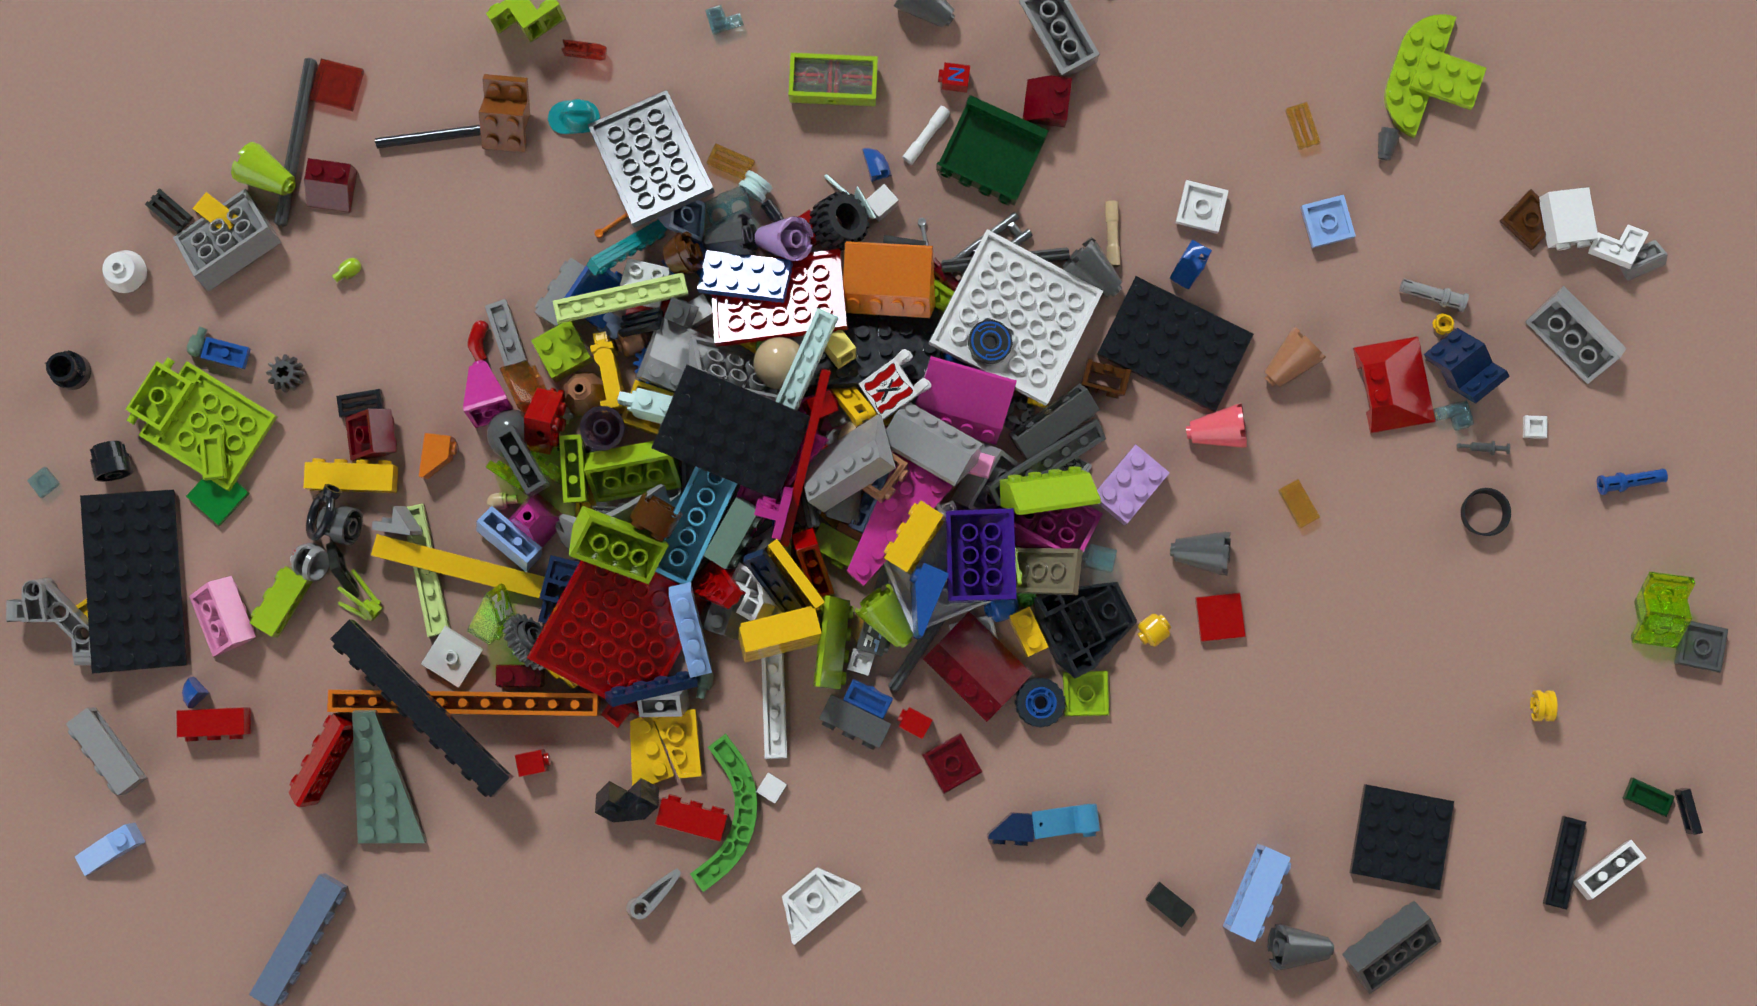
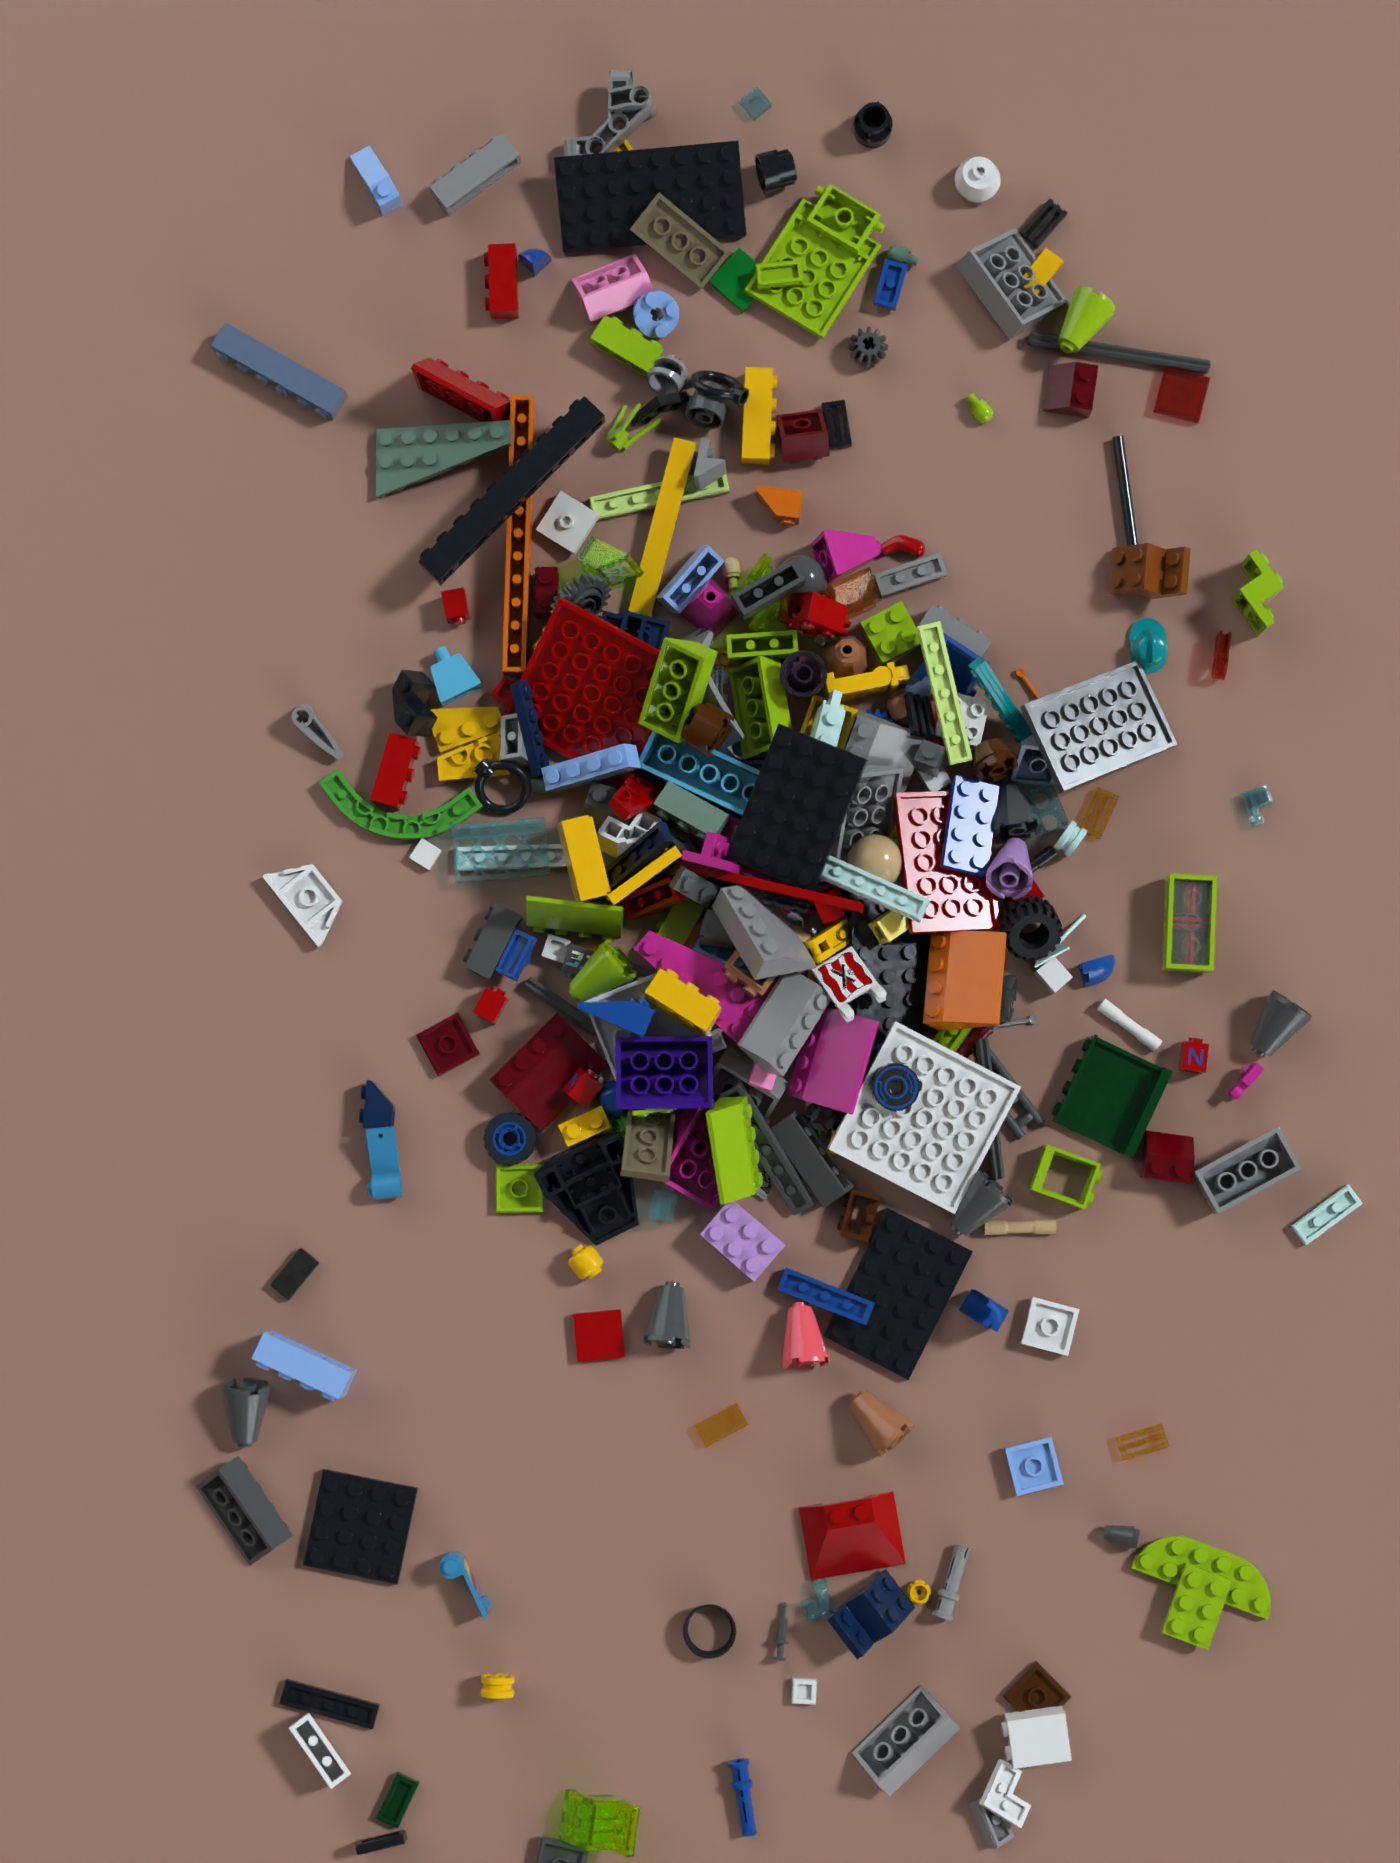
camera: 90 degrees right, 0 degrees up
(177, 551) = (680, 240): none -> dark tan plate
(253, 586) = (643, 317): none -> light blue plate
(600, 764) = (453, 676): none -> medium azure torso
(691, 730) = (485, 769): none -> black piece
(748, 716) = (495, 830): none -> clear light blue fence
(805, 528) = (694, 886): none -> dark grey plate
(819, 441) = (786, 902): none -> black axle
(973, 29) = (1248, 1076): none -> dark pink plate
(991, 633) = (583, 1086): none -> red brick
(1060, 213) = (1042, 1168): none -> lime window
(1180, 407) = (826, 1296): none -> blue plate
(1437, 748) = (455, 1565): none -> dark azure door

